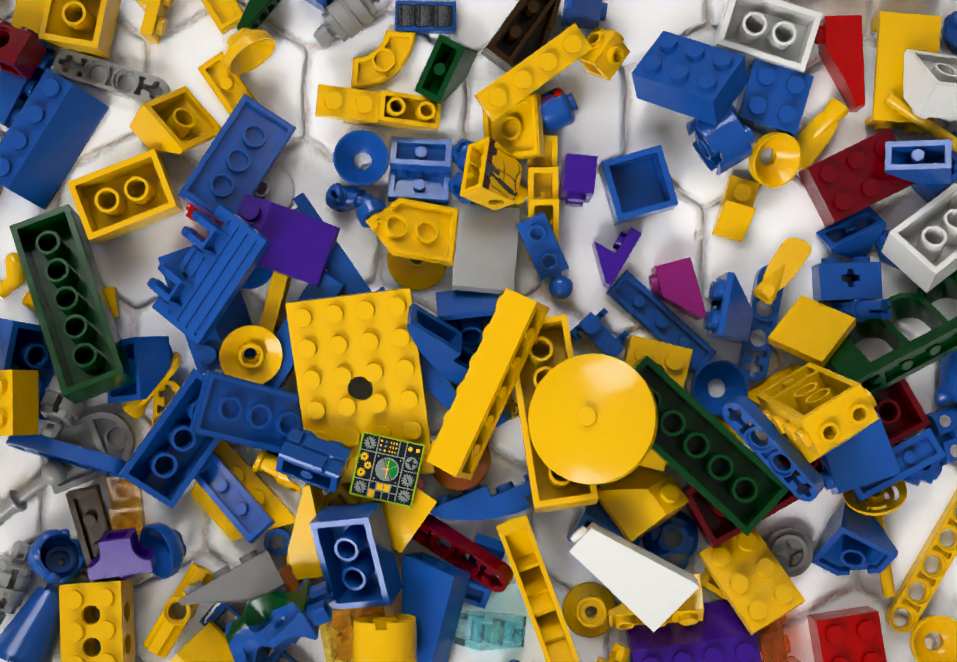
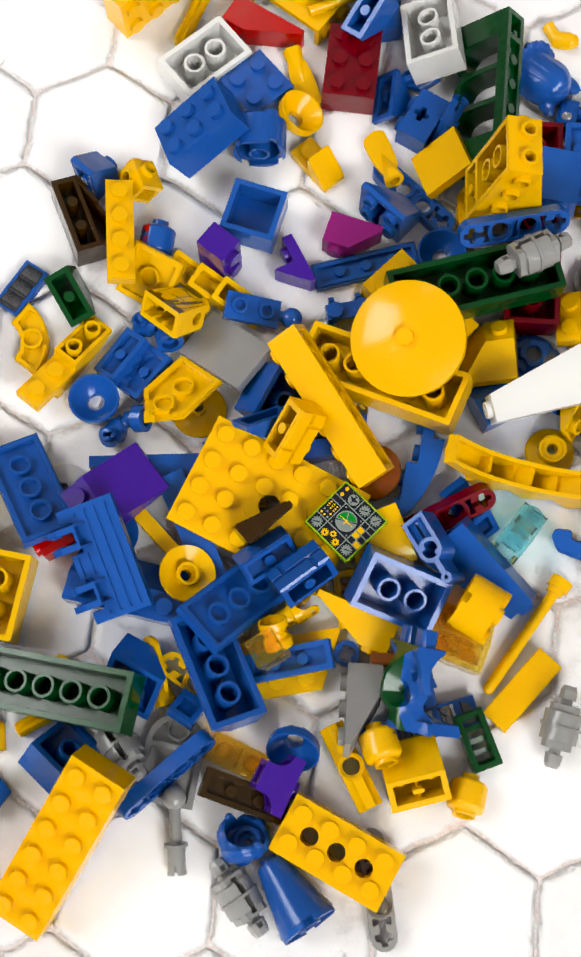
camera: 50 degrees left, 10 degrees down
(132, 432) = (186, 709): none -> blue plate
(207, 627) = (380, 745): none -> yellow head
(223, 473) = (266, 649): none -> clear yellow panel
(246, 472) = (278, 623): none -> yellow wheel
(311, 413) = (264, 554): none -> blue slope
(331, 391) = (256, 525): none -> dark brown slope
(415, 564) = (433, 545): none -> blue piece
(438, 368) = (294, 430): none -> yellow brick
(753, 486) = (533, 253): none -> light grey piece

